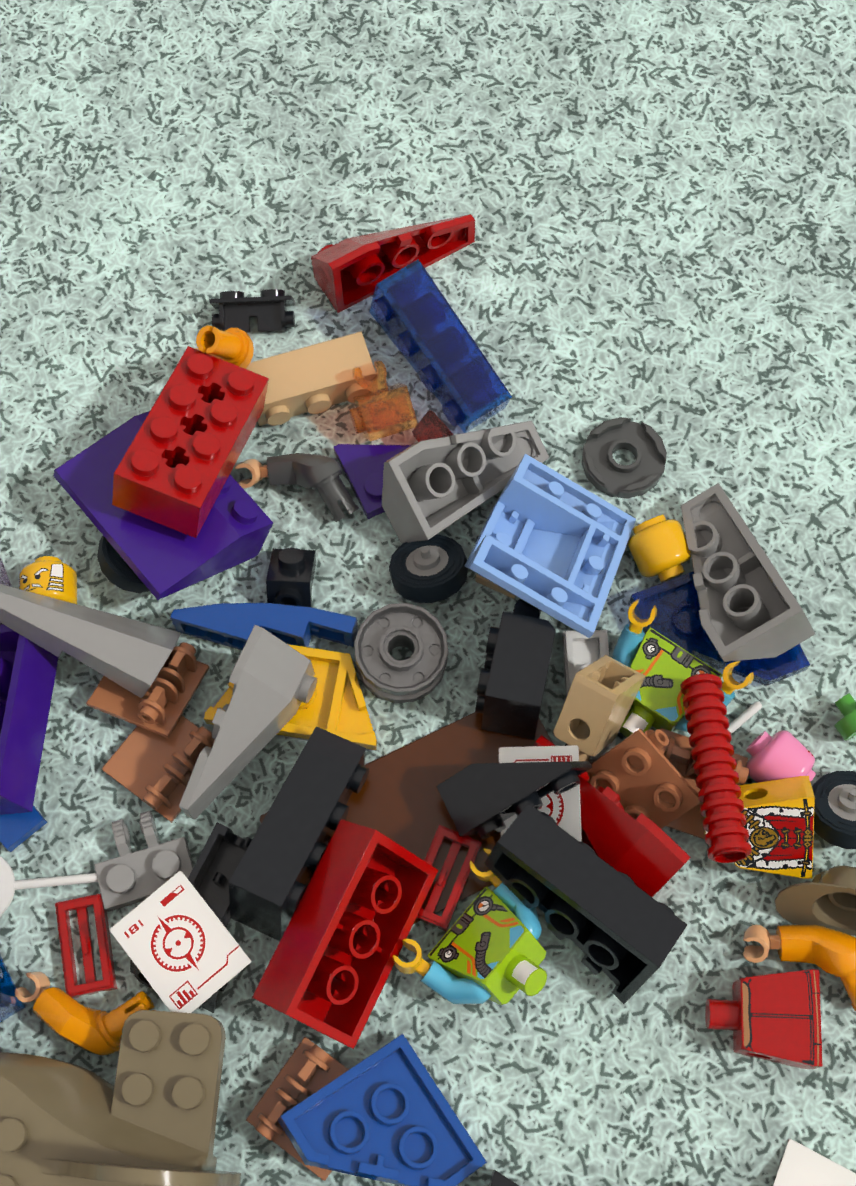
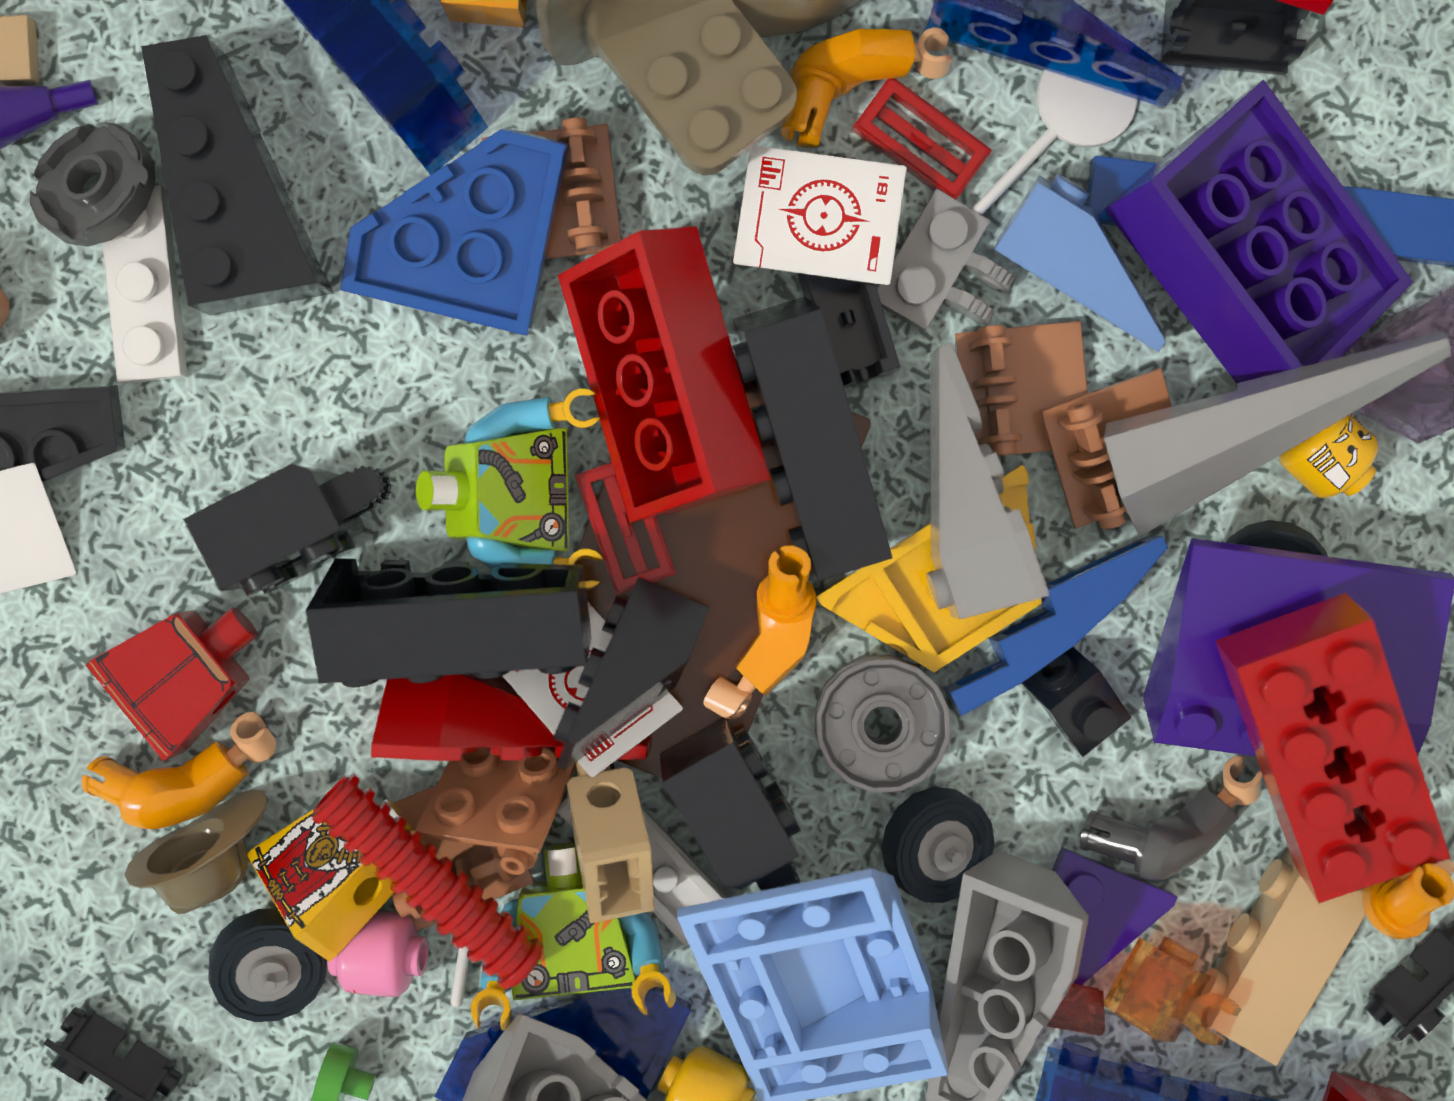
camera: 135 degrees right, 20 degrees up
(70, 814) = (1069, 249): none -> medium blue slope
(405, 744) = (785, 622): none -> light orange arm
(632, 1042) = (284, 521): none -> black hinge

